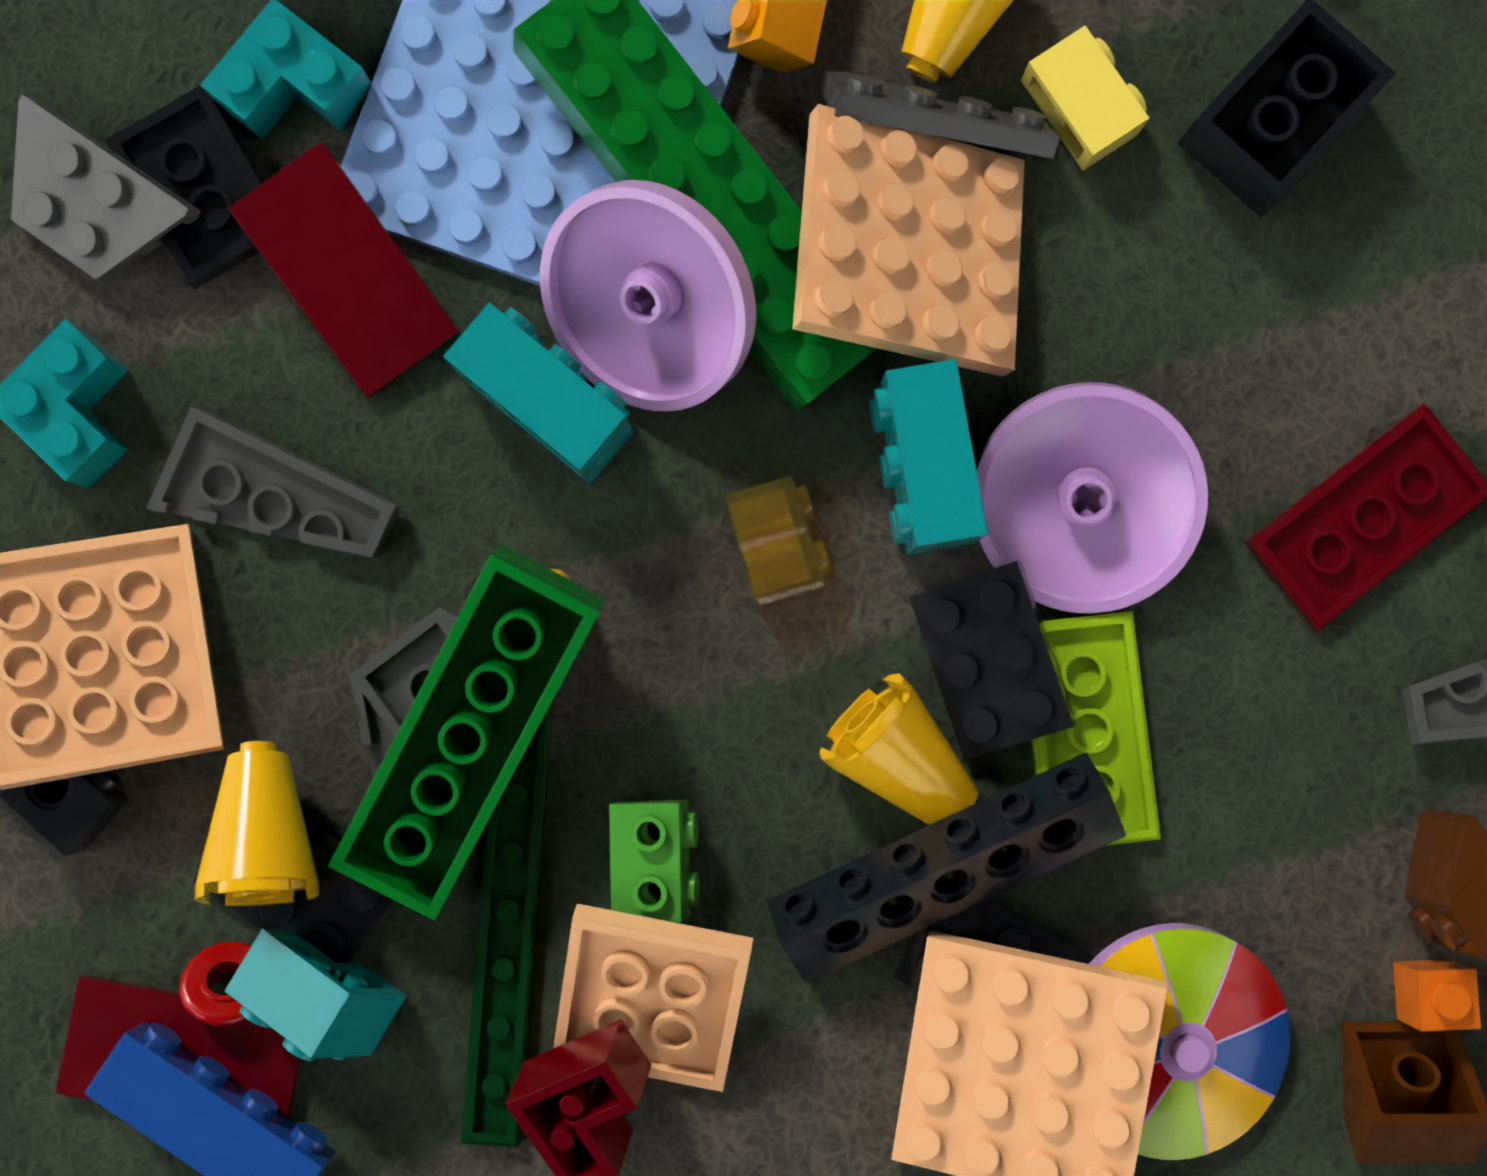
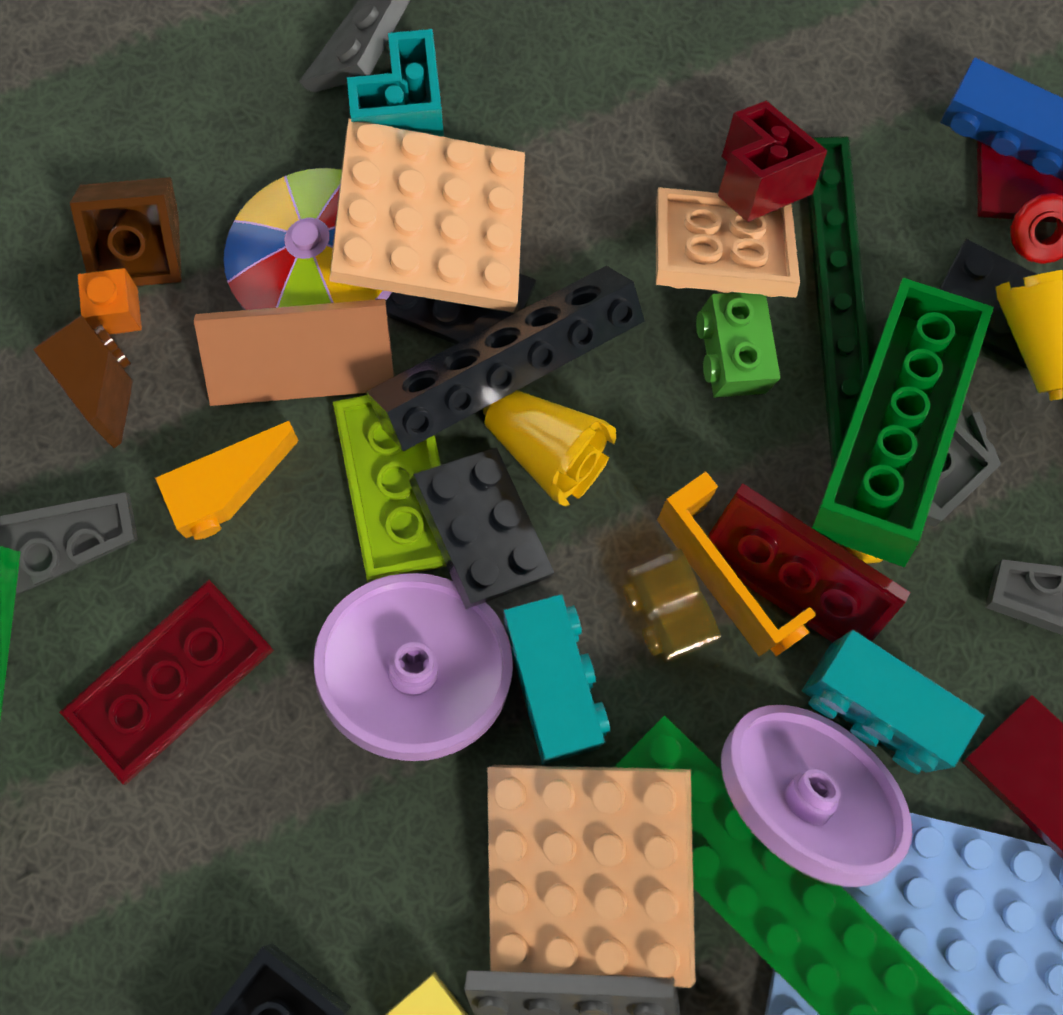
camera: 170 degrees right, 10 degrees down
(311, 999) = (984, 213): teal brick -> none
(619, 561) = (803, 569): none -> dark red tile
(653, 484) = (718, 576): none -> light orange panel
(1207, 902) = (294, 351): none -> nougat tile
(1305, 742) = (218, 485): none -> light orange slope

